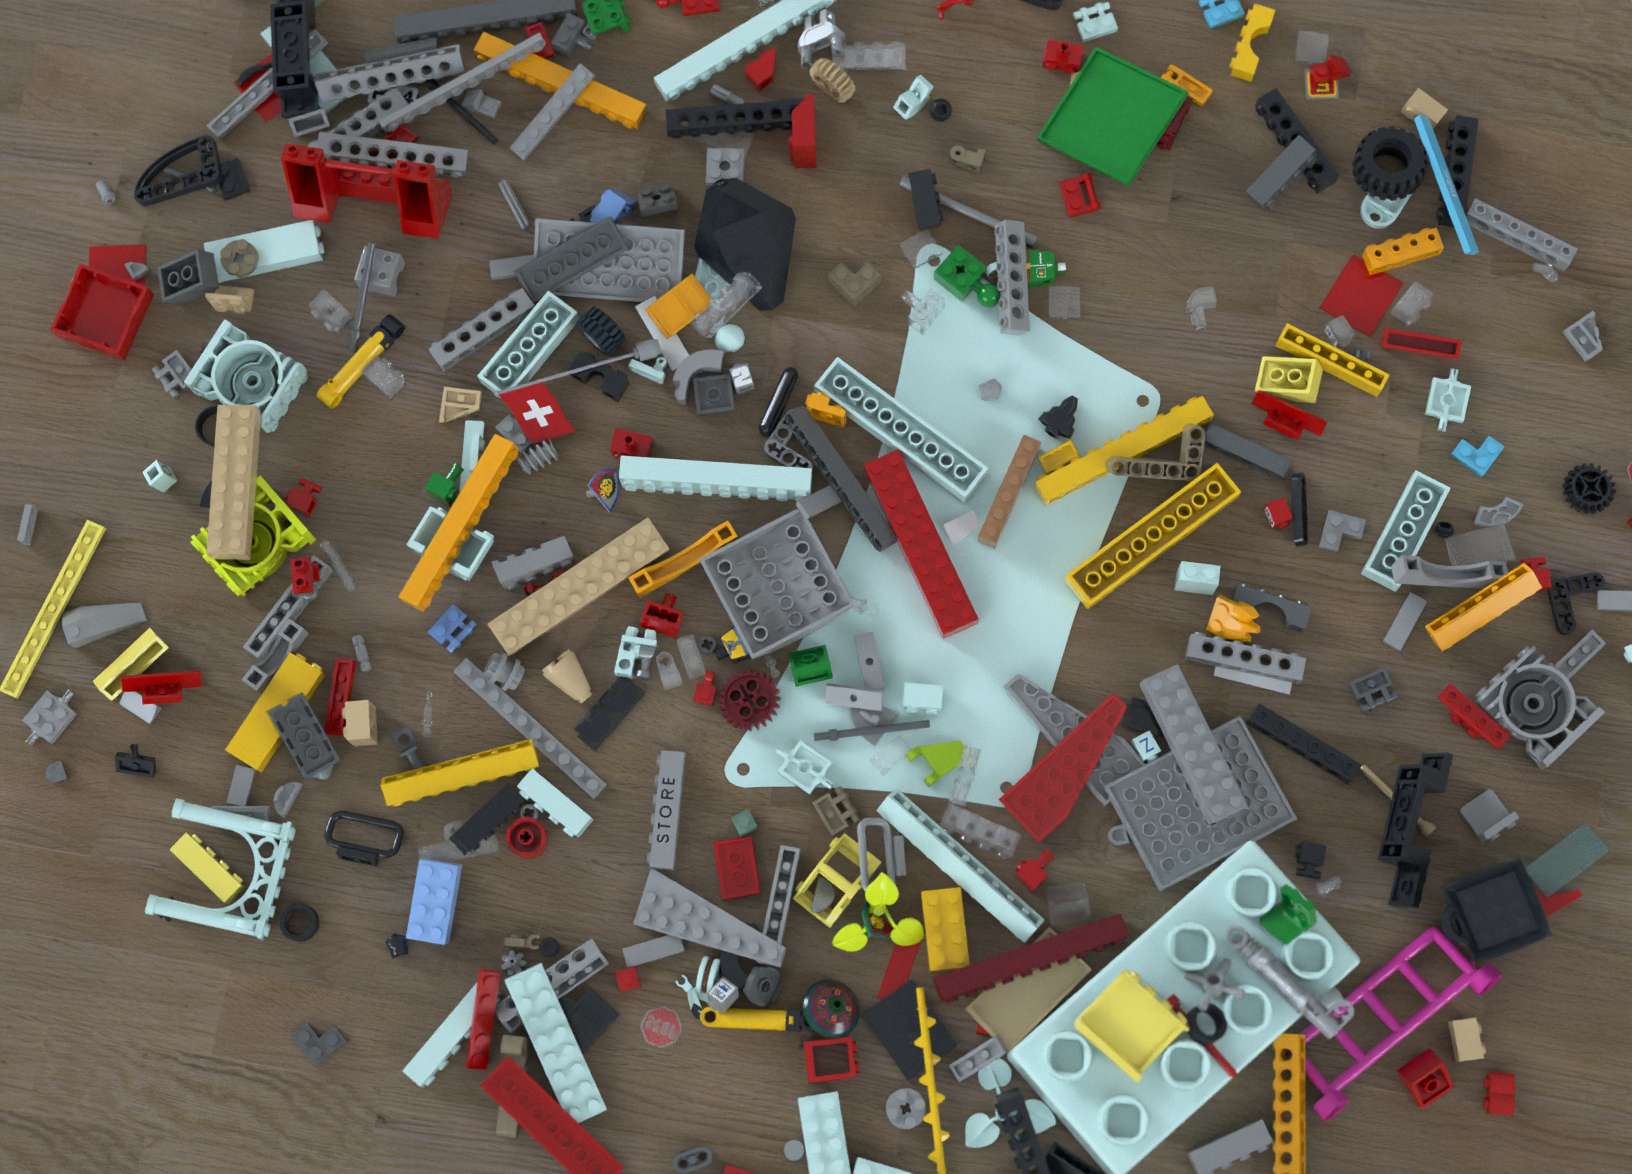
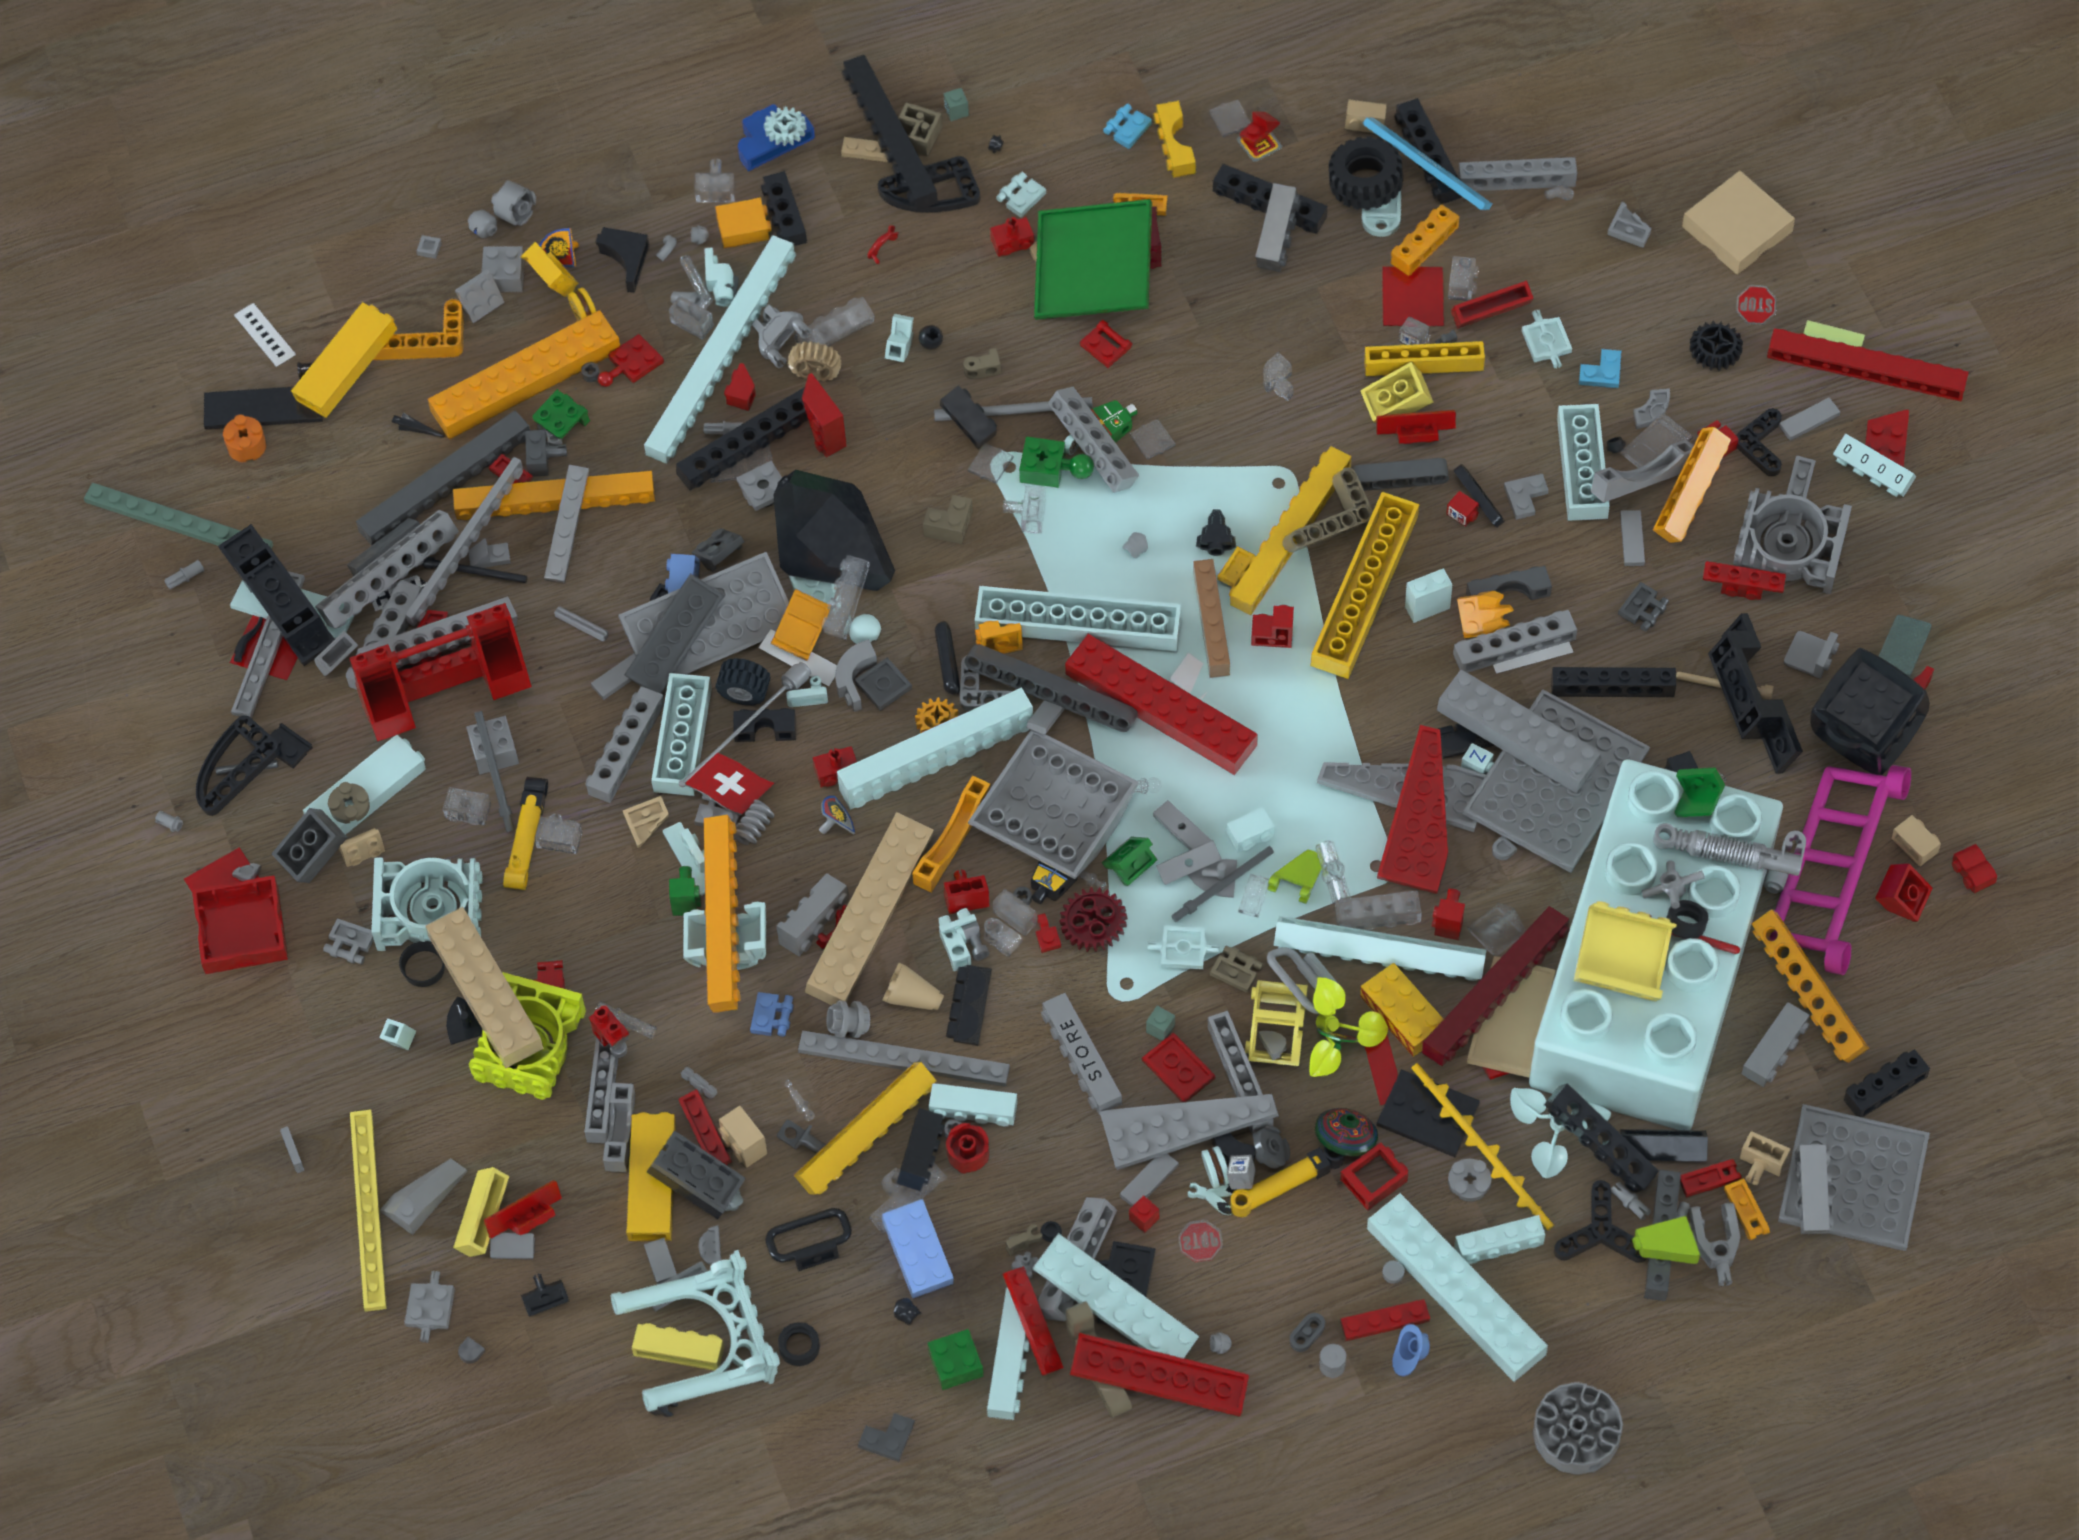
camera: 35 degrees left, 15 degrees down
(407, 1011) = (955, 1359): none -> green brick
(619, 1126) = (1220, 1343): none -> light grey plate
(730, 446) = (928, 714): none -> light orange gear
(741, 378) = (901, 655): brick -> none
(978, 1058) = (1506, 1096): light grey tile -> none
(1053, 531) = (1275, 629): none -> red brick

